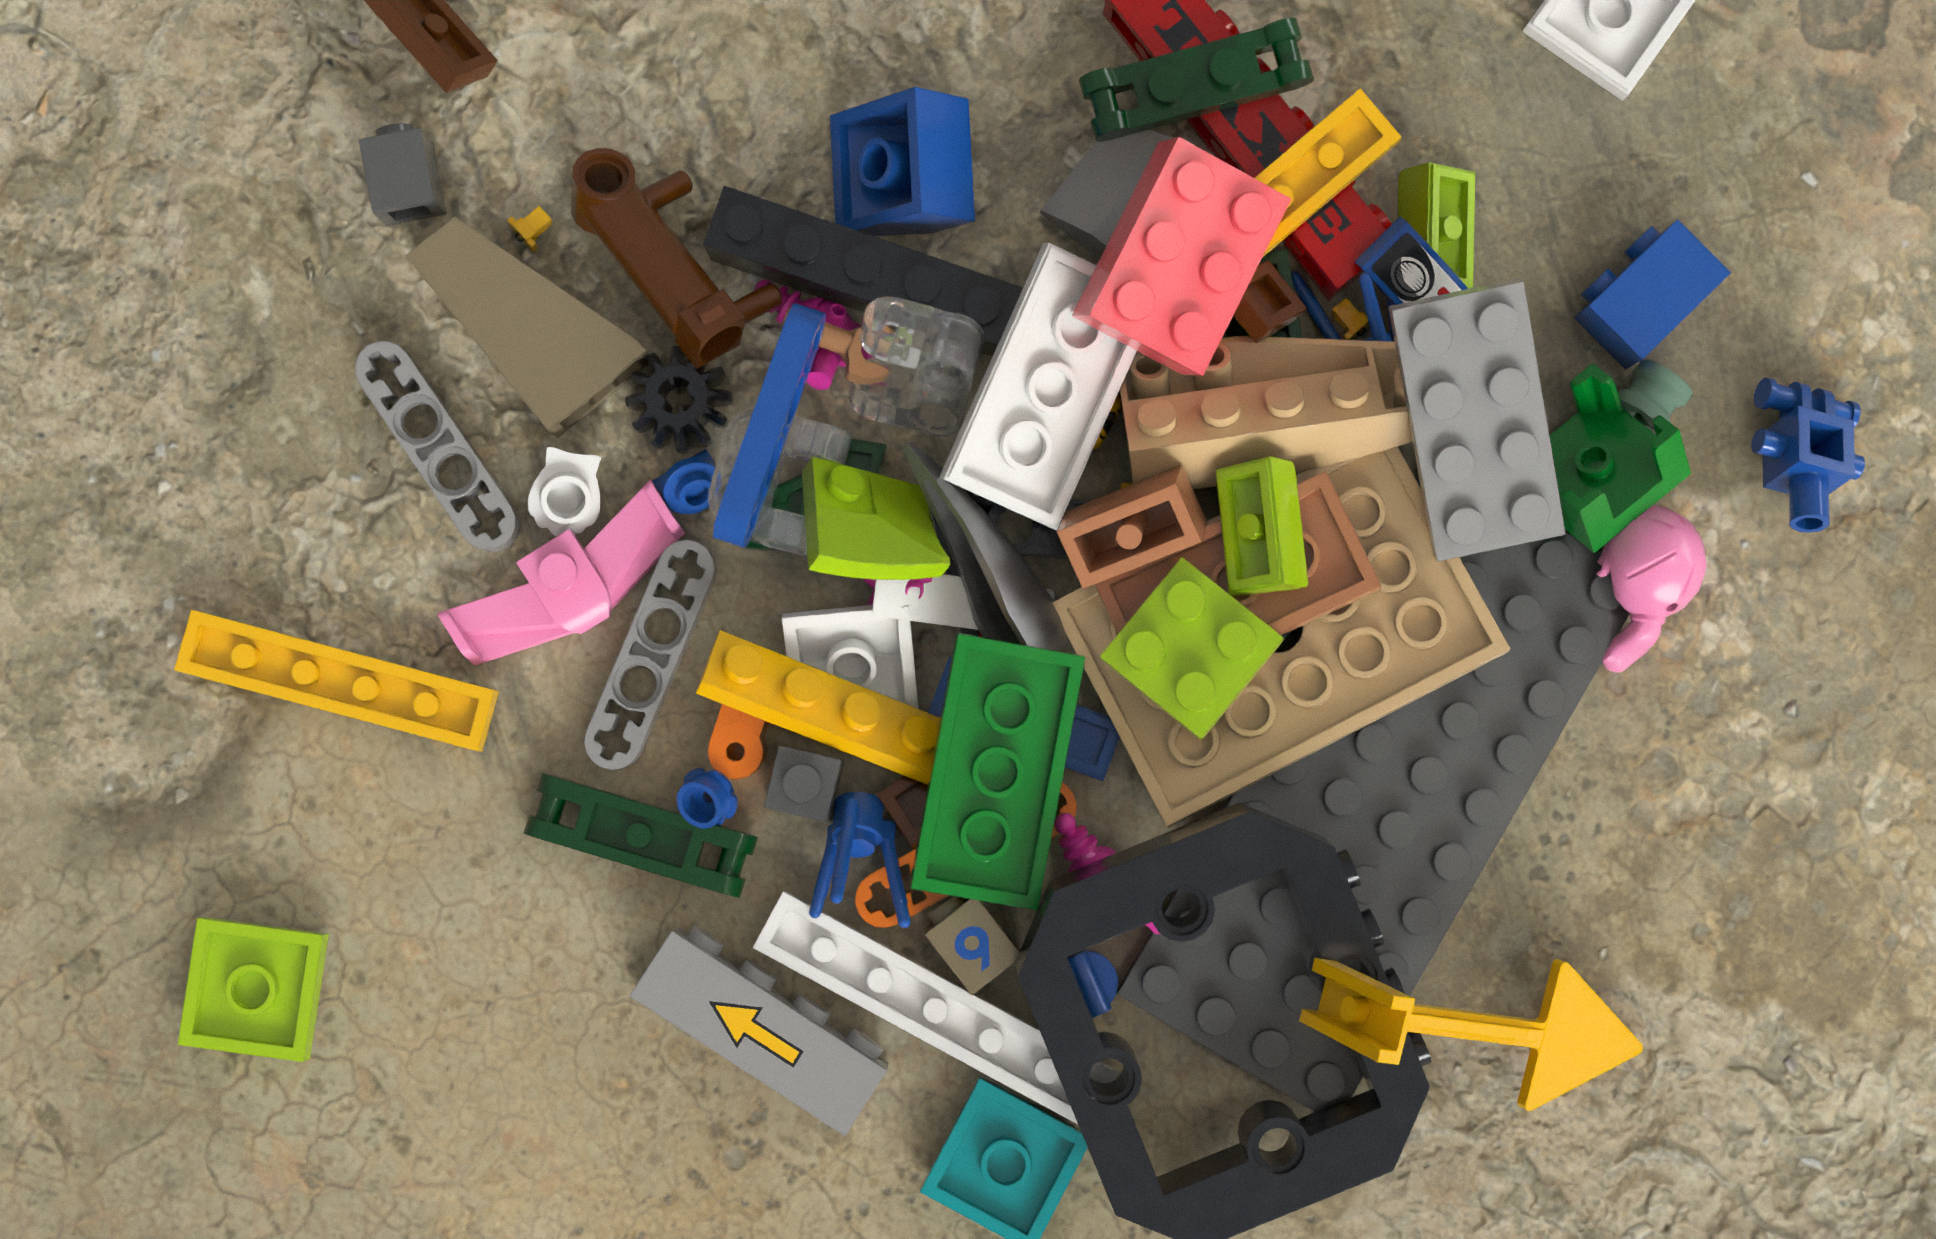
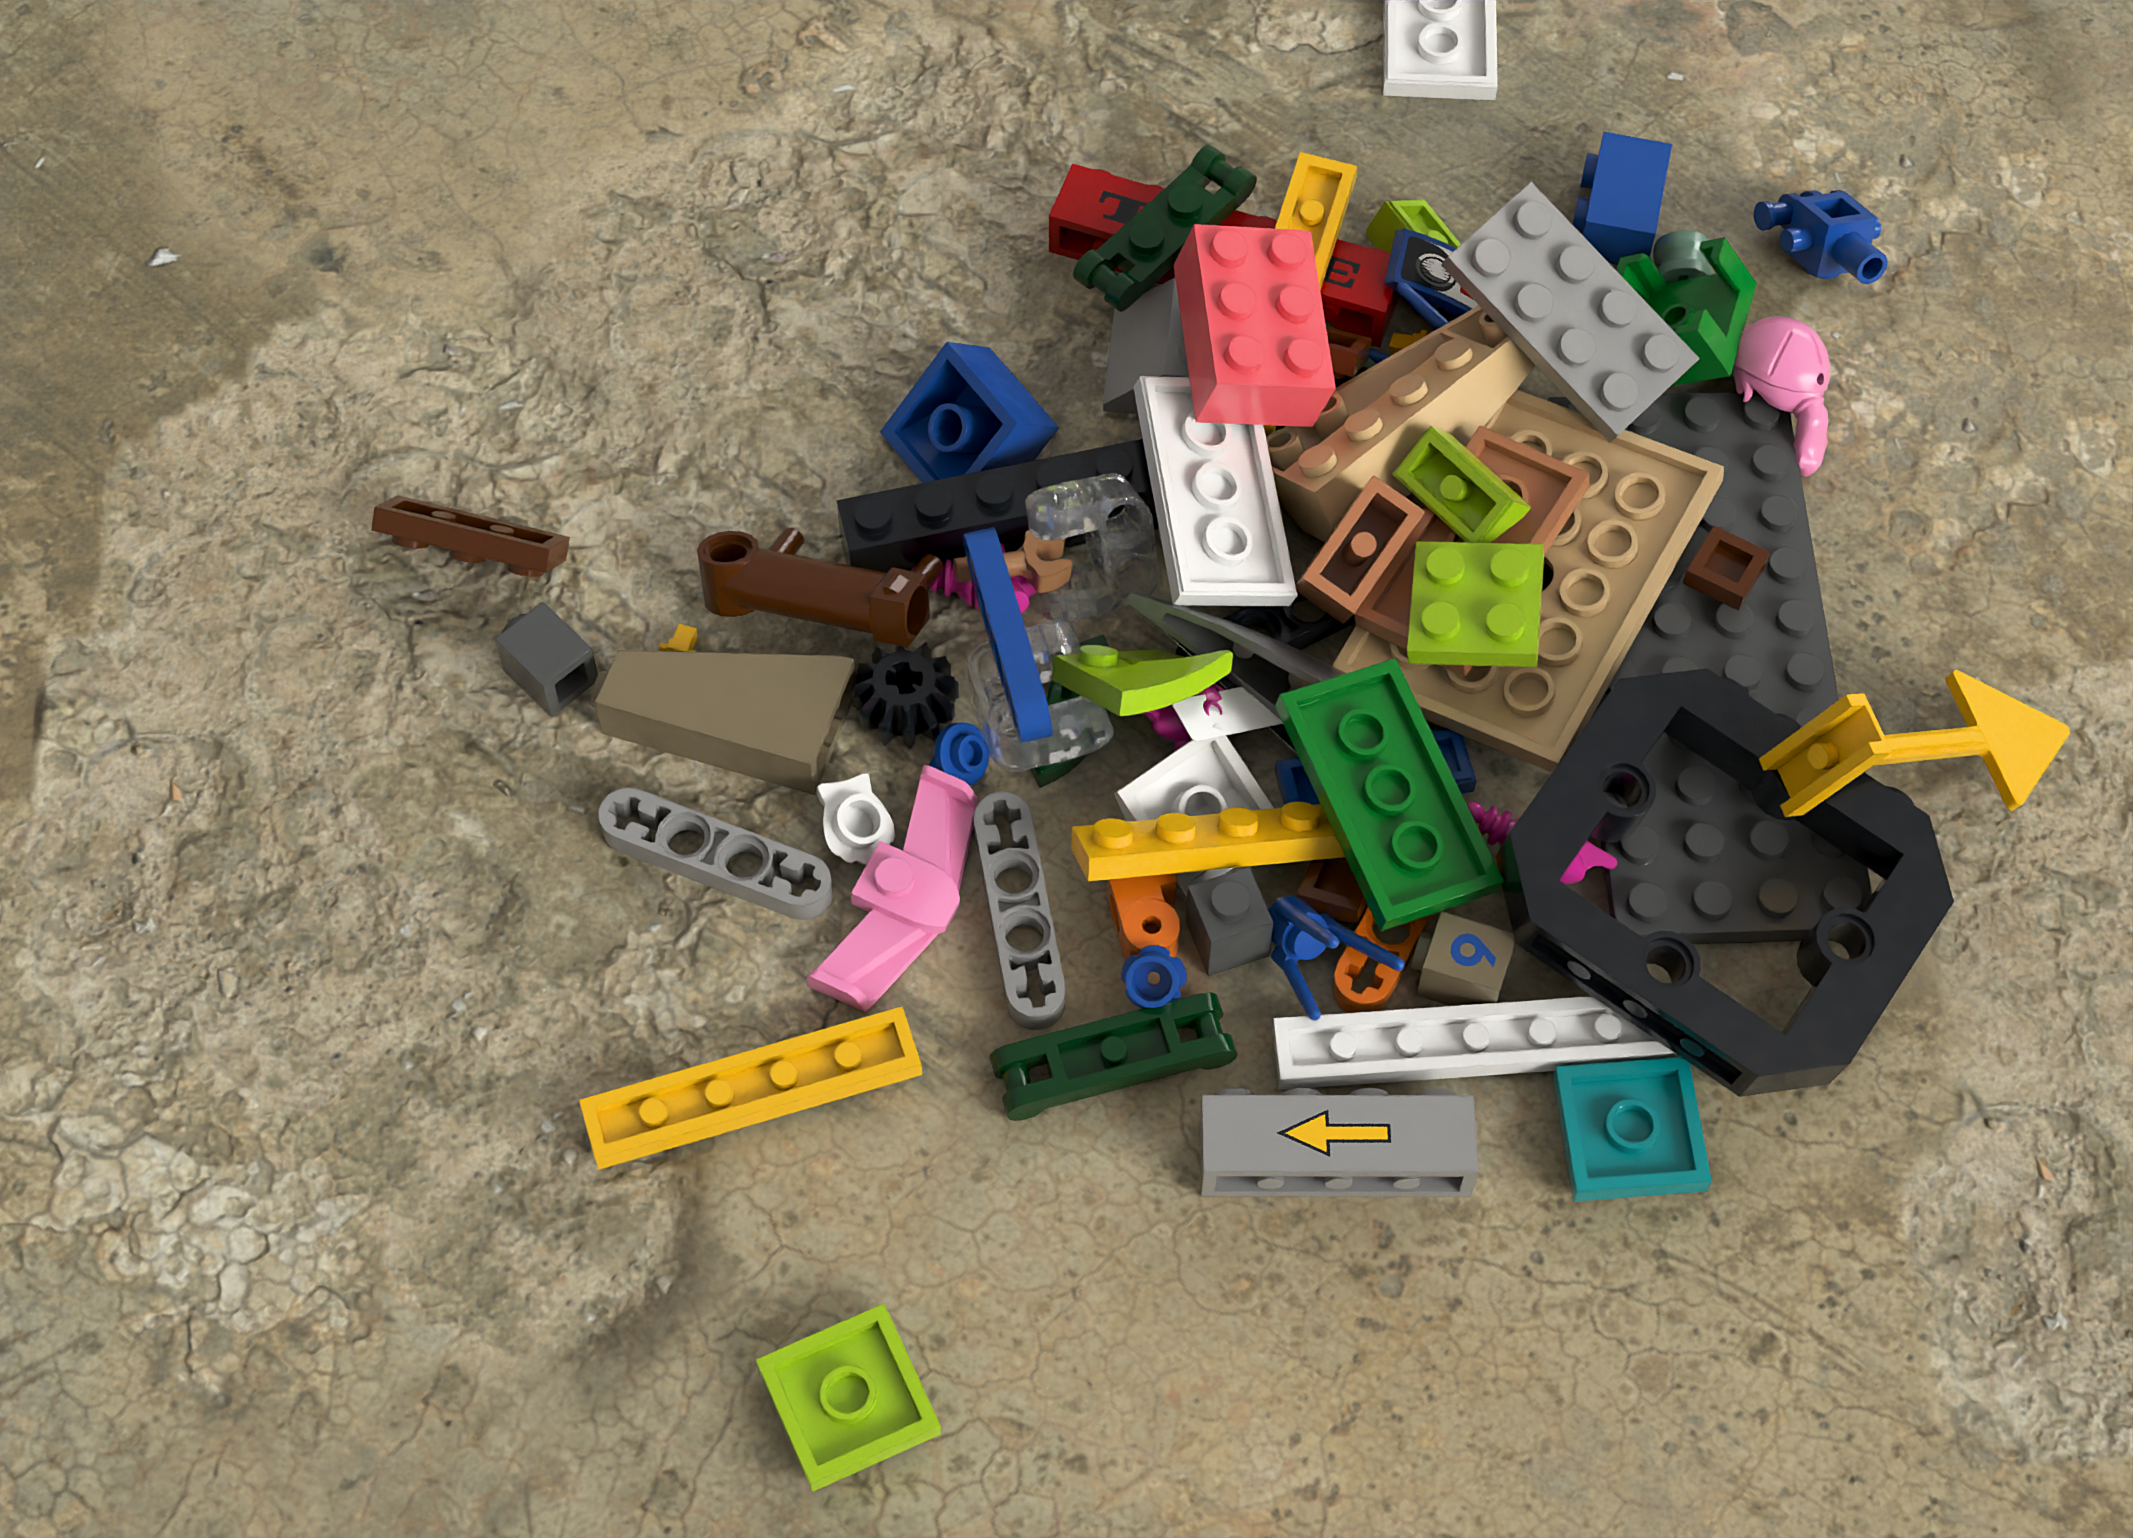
camera: 30 degrees left, 25 degrees down
(1449, 734) = (1726, 567): none -> reddish brown plate

